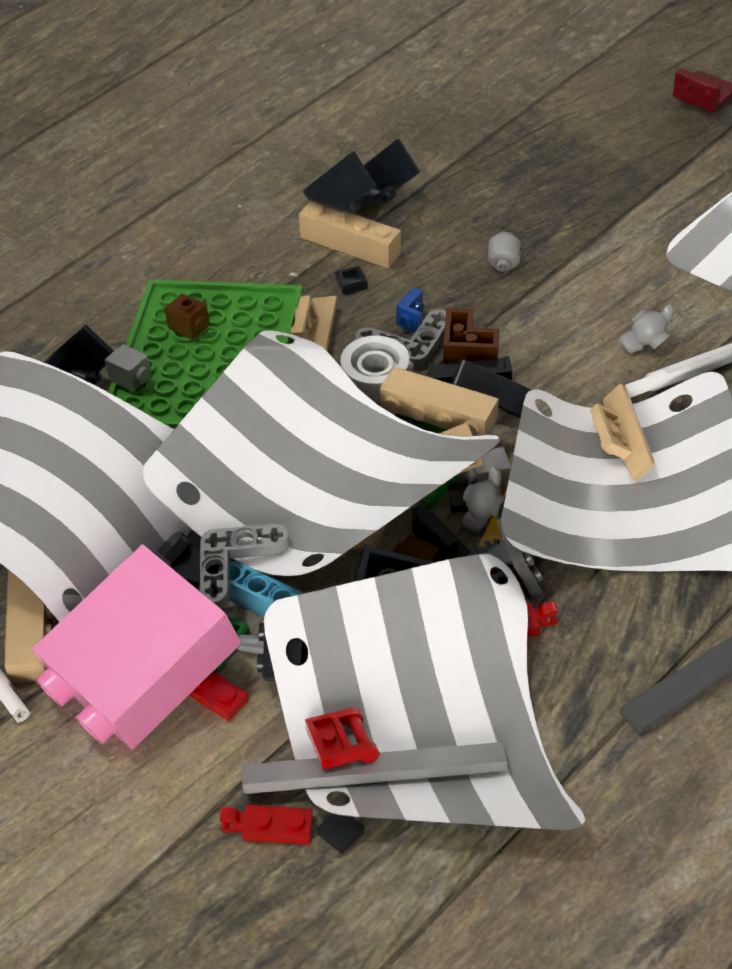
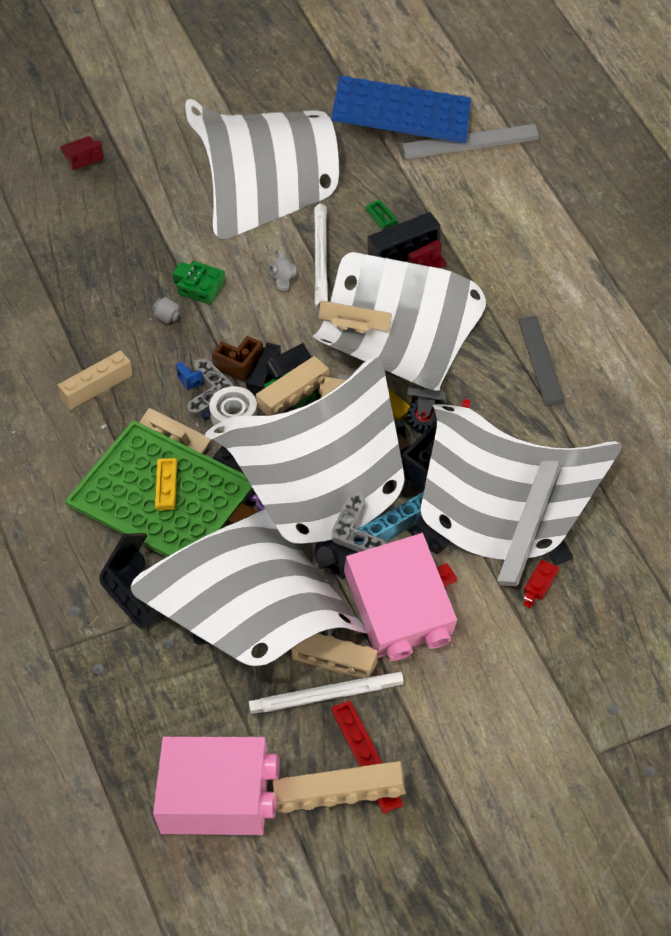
camera: 65 degrees left, 5 degrees up
(128, 368) = (160, 531): light grey brick -> none
(187, 316) = (130, 486): reddish brown brick -> none
(211, 349) = (166, 484): none -> yellow tile
(331, 740) = (506, 532): red plate -> none
(351, 280) = (133, 397): black tile -> none
(355, 185) = (59, 356): black windscreen -> none
(575, 263) = (198, 281): none -> green piece

